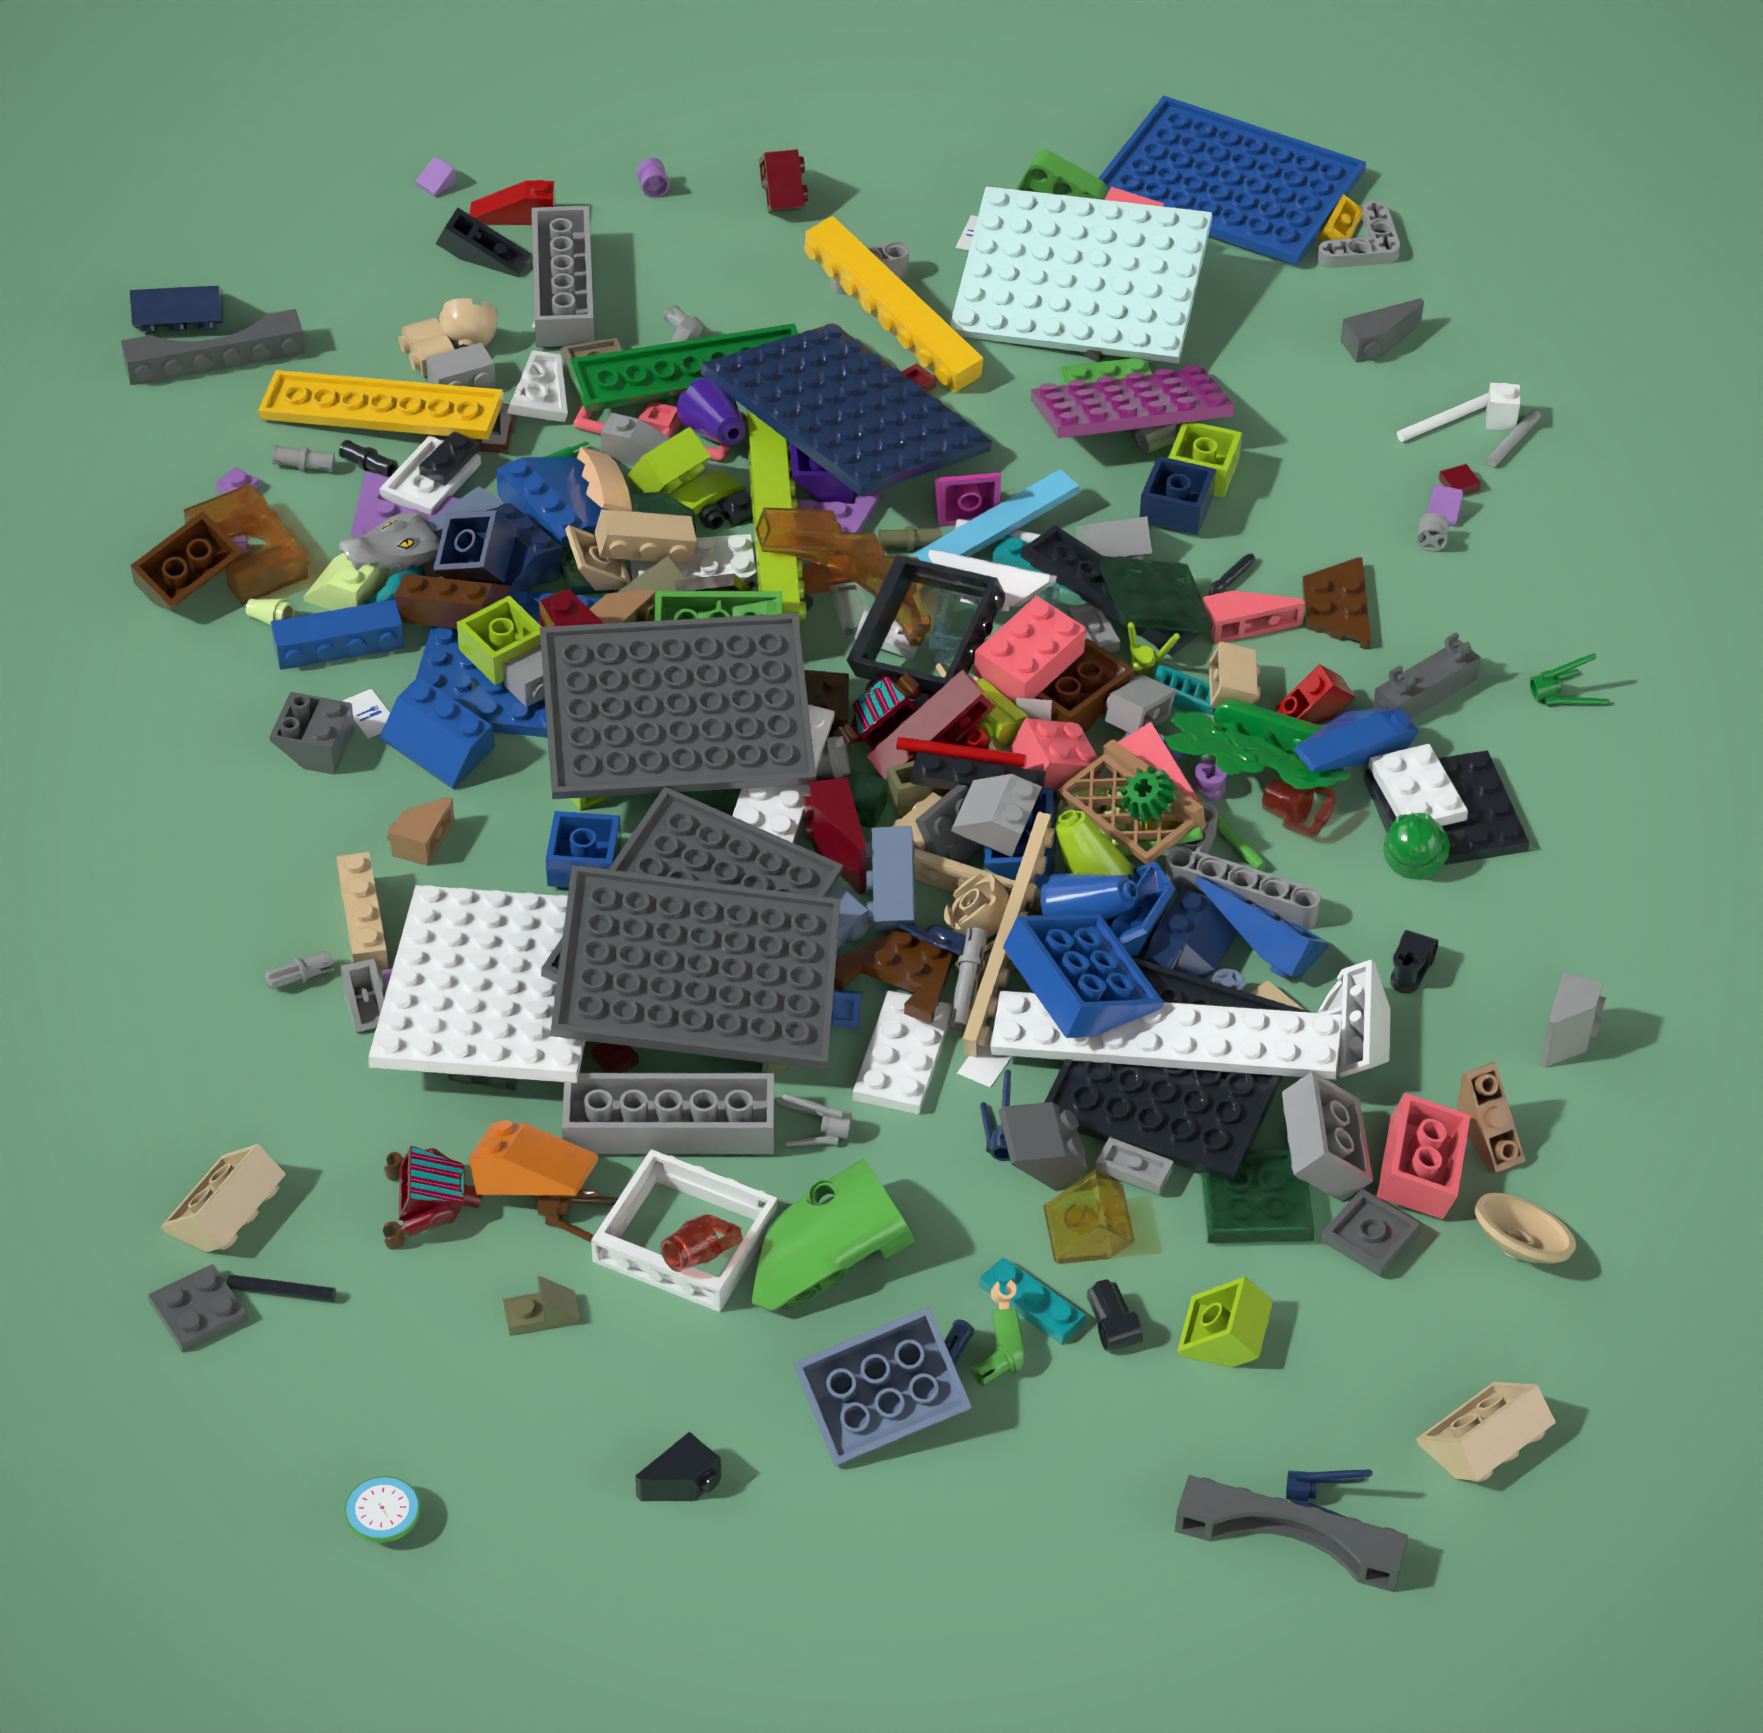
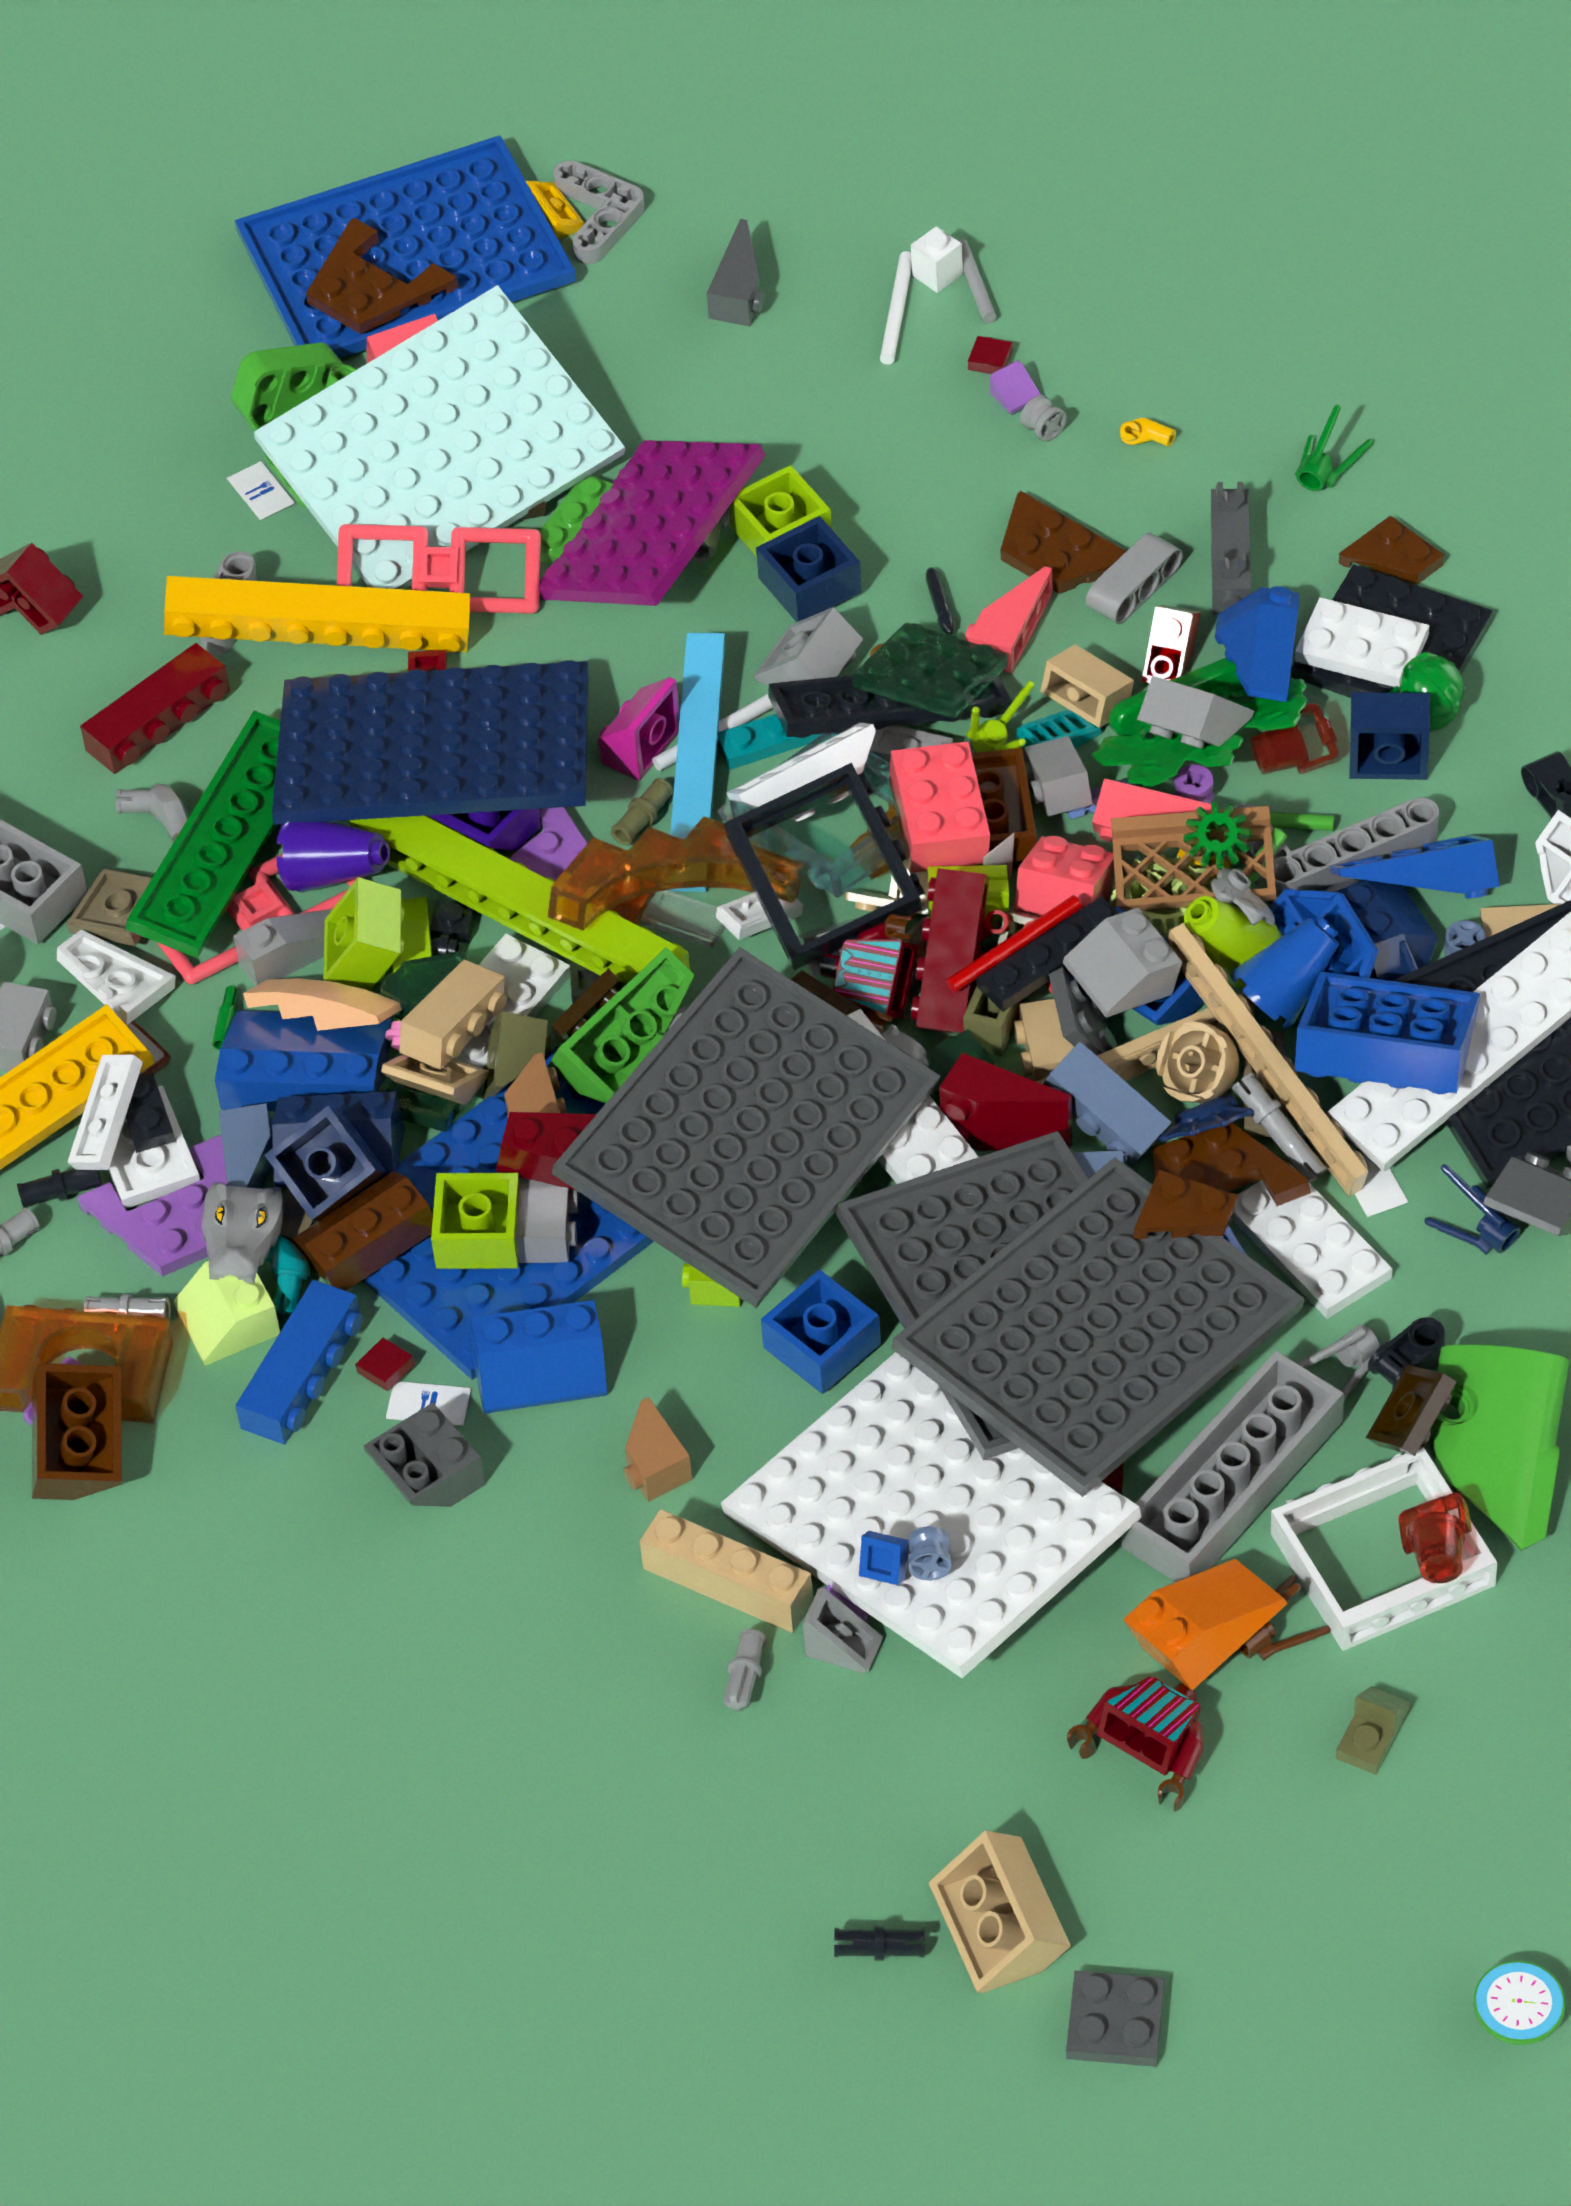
camera: 45 degrees left, 5 degrees up
(151, 1154) = (879, 1942): none -> black pin
(269, 609) = (202, 1401): yellowish green cone -> none
(281, 1288) = (1153, 1930): black bar -> none
(308, 539) = (129, 1305): none -> light grey pin
(376, 675) = (385, 1364): none -> dark red tile
(418, 970) = (883, 1557): none -> blue tile
(423, 436) = (105, 1112): none -> white plate
(437, 988) = (929, 1553): none -> sand blue wheel
(757, 286) = (155, 708): none -> dark red brick
(788, 1177) = (1411, 1410): none -> dark brown plate
(831, 954) = (1184, 1208): none -> reddish brown wing
(853, 1149) = (1405, 1350): none -> black piece
(996, 337) = (446, 565): none -> coral bar
(1115, 837) = (1234, 889): none -> light grey plate
(1168, 176) = (363, 293): none -> reddish brown wing
(1249, 731) = (1191, 713): none -> light grey slope
(1351, 844) = (1389, 735): none -> dark blue brick
(1352, 651) = (1134, 578): none -> light grey beam
(1482, 586) = (1146, 430): none -> yellow arm
(1523, 765) = (1394, 552): none -> reddish brown wing

